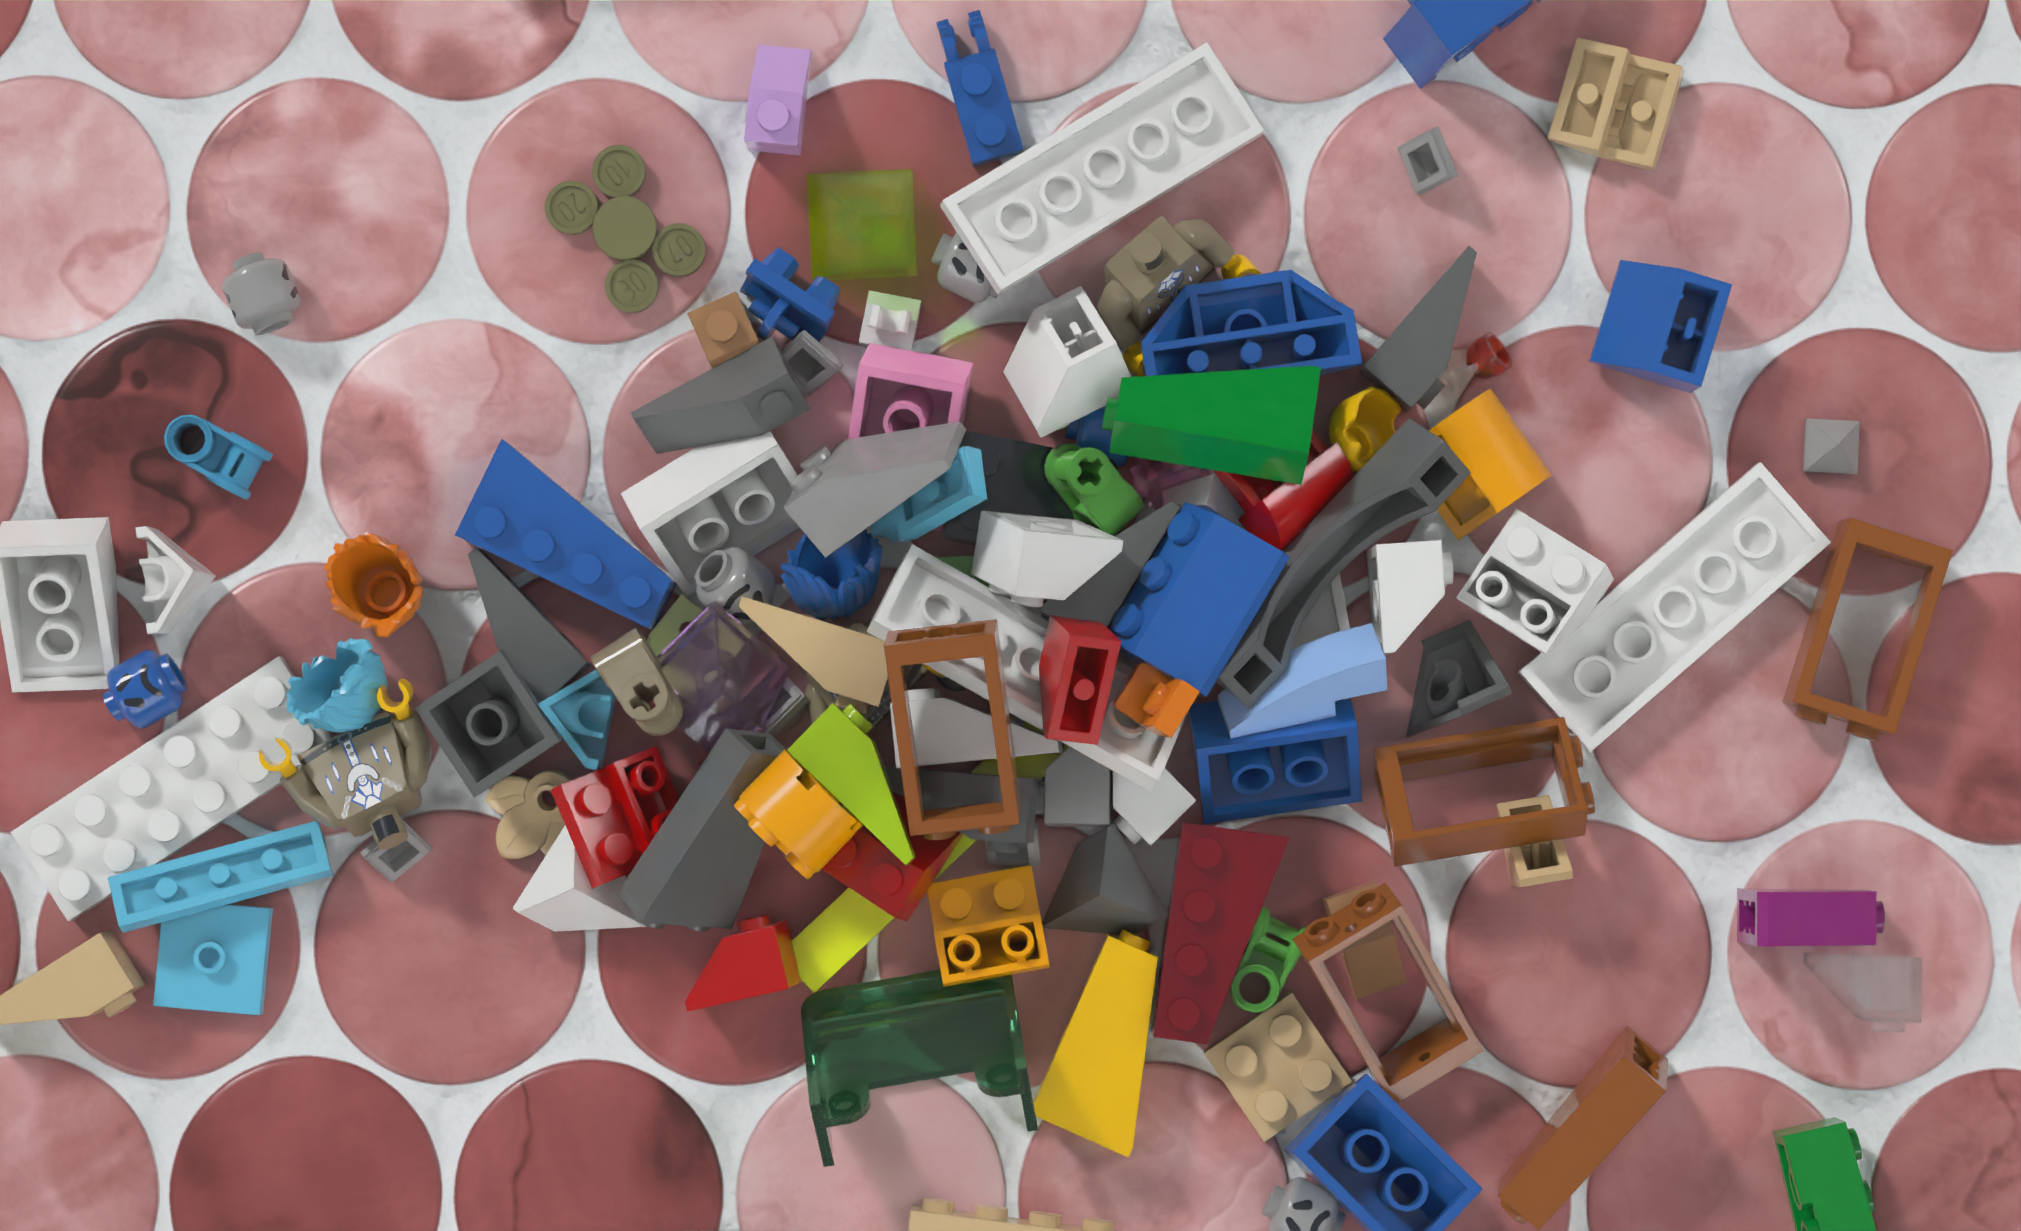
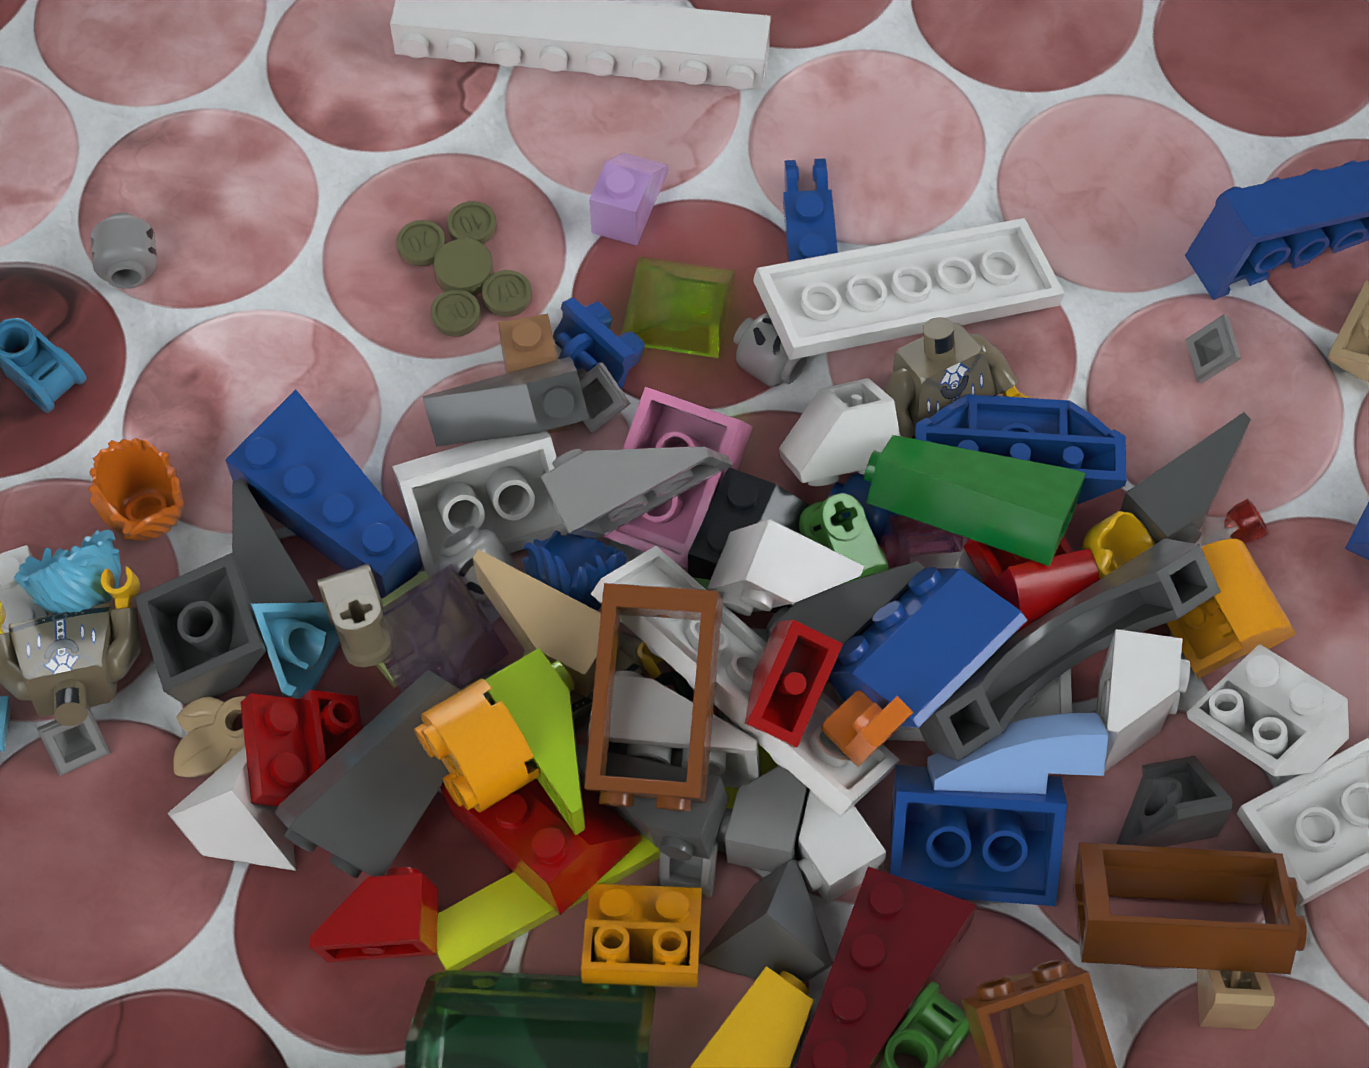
camera: 10 degrees right, 25 degrees down
(890, 320) = (686, 380): white tile -> none
(938, 501) = (687, 510): medium azure hinge -> none

